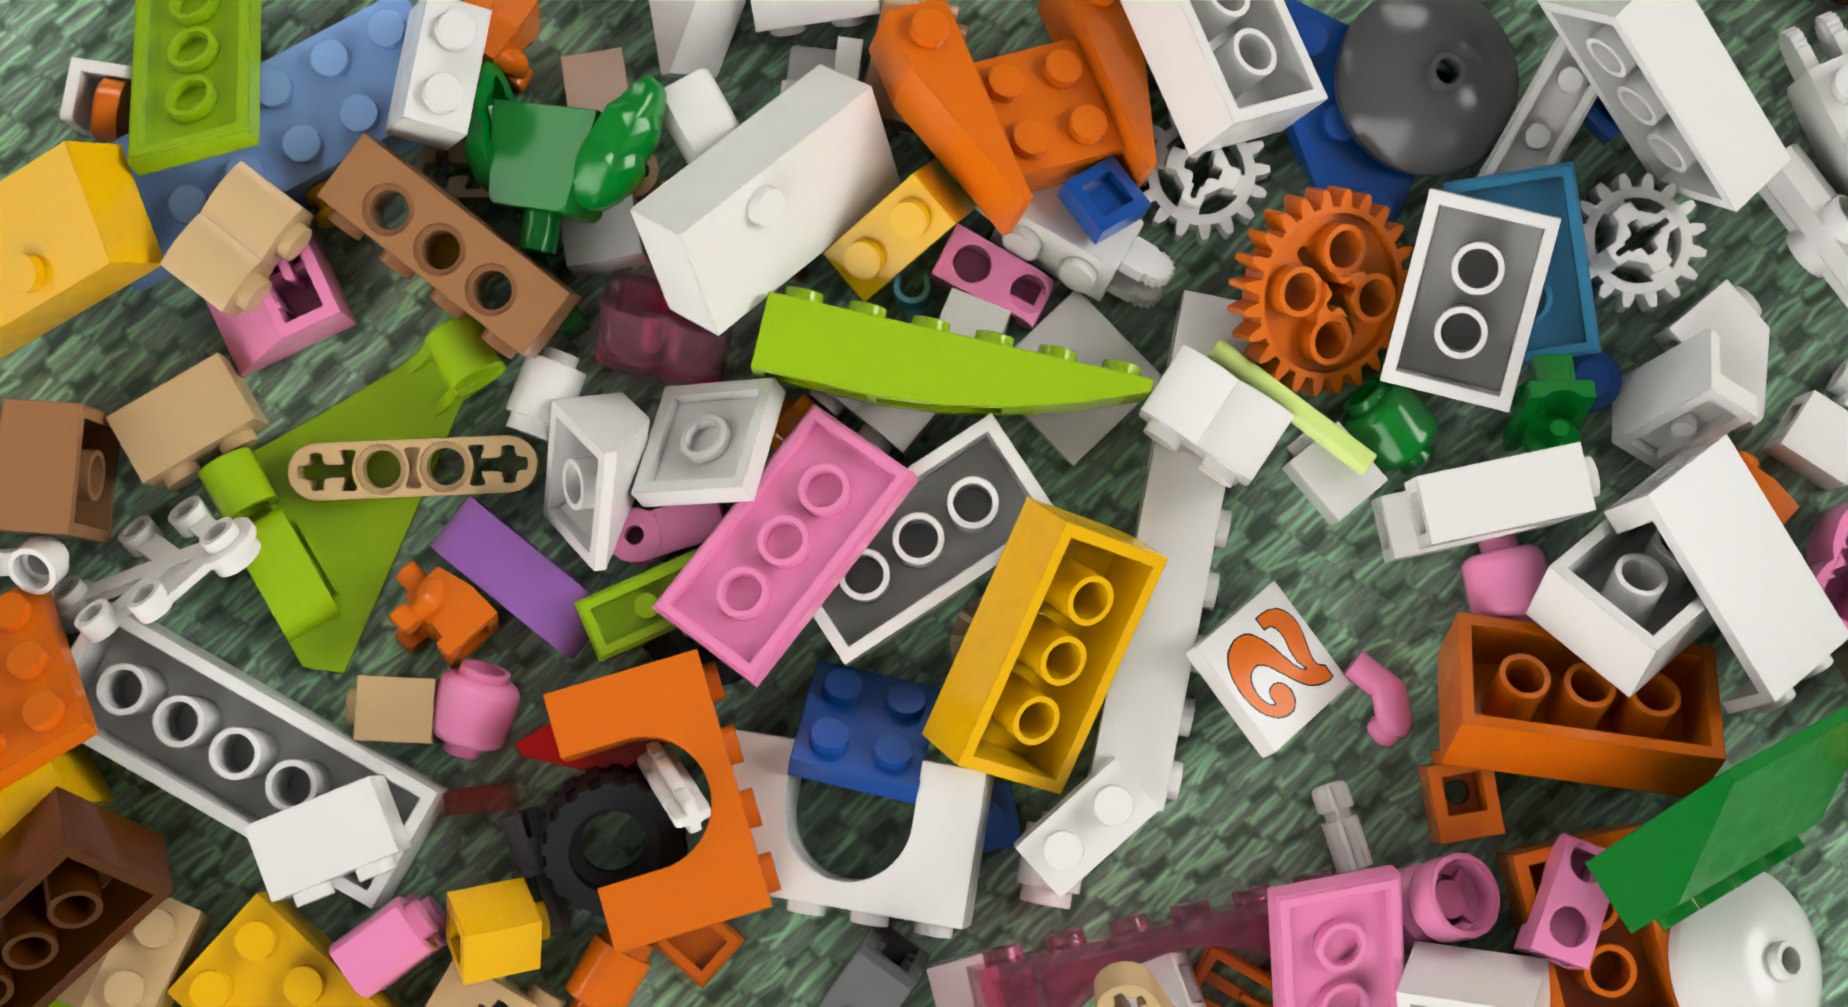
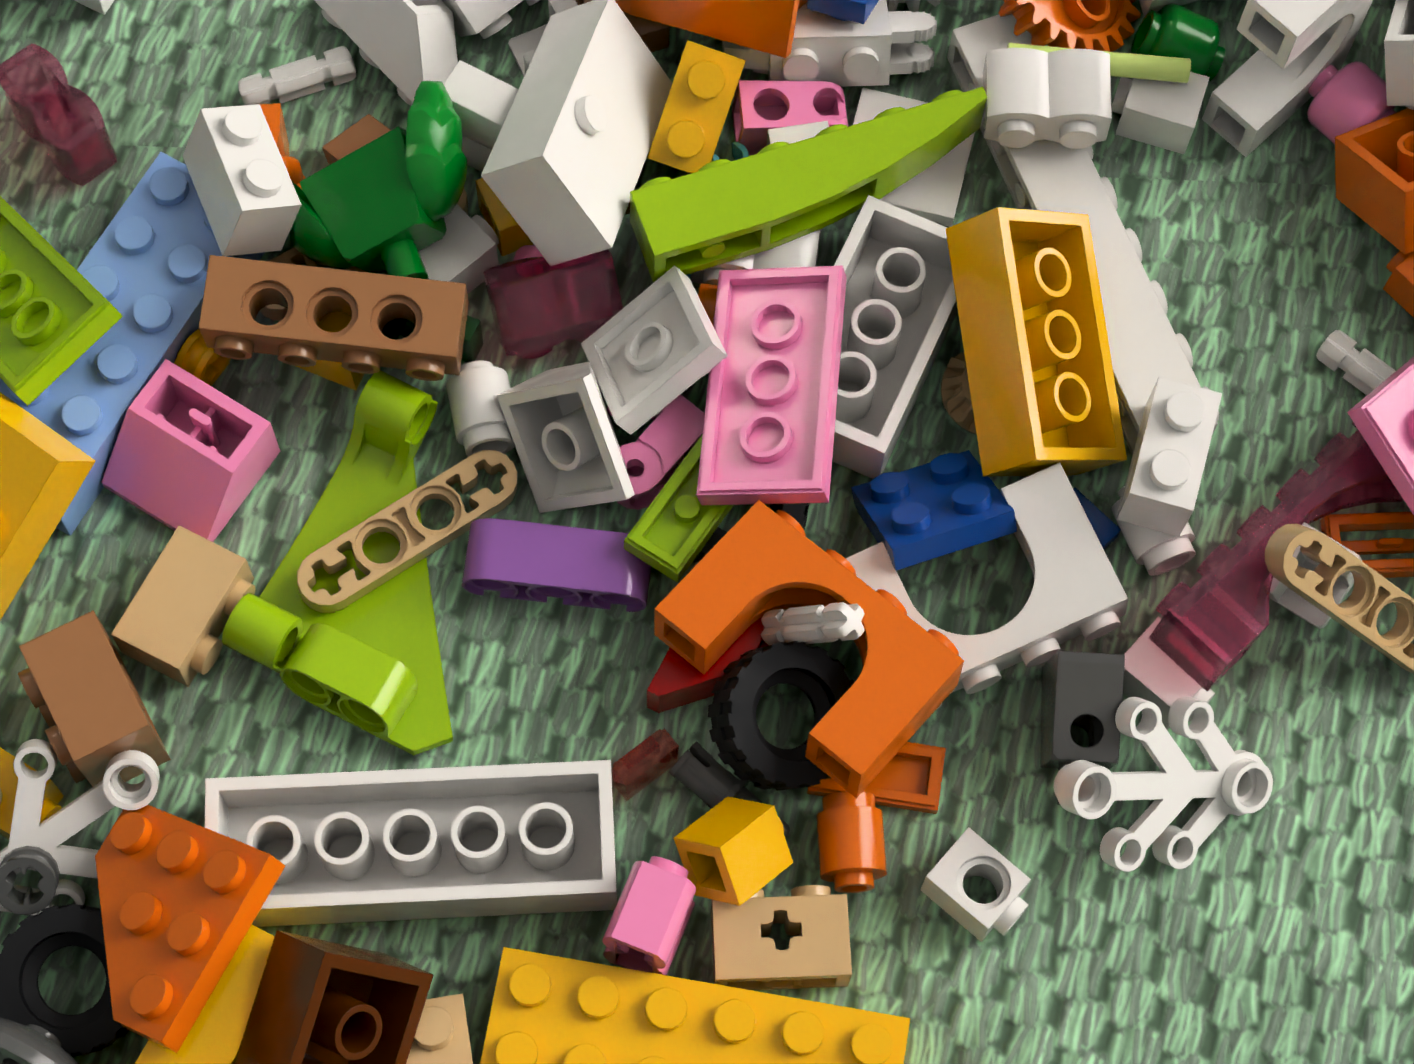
camera: 40 degrees left, 15 degrees down
(155, 585) = (244, 727): white plant -> none
(239, 241) = (151, 404): tan brick -> none
(327, 839) = (546, 842): white brick -> none
(392, 709) = (522, 729): tan brick -> none
(444, 611) = (512, 629): orange piece -> none
(474, 708) = (588, 693): bright pink head -> none
(1268, 669) = (1218, 274): white tile -> none
(1389, 698) = (1321, 246): bright pink arm -> none

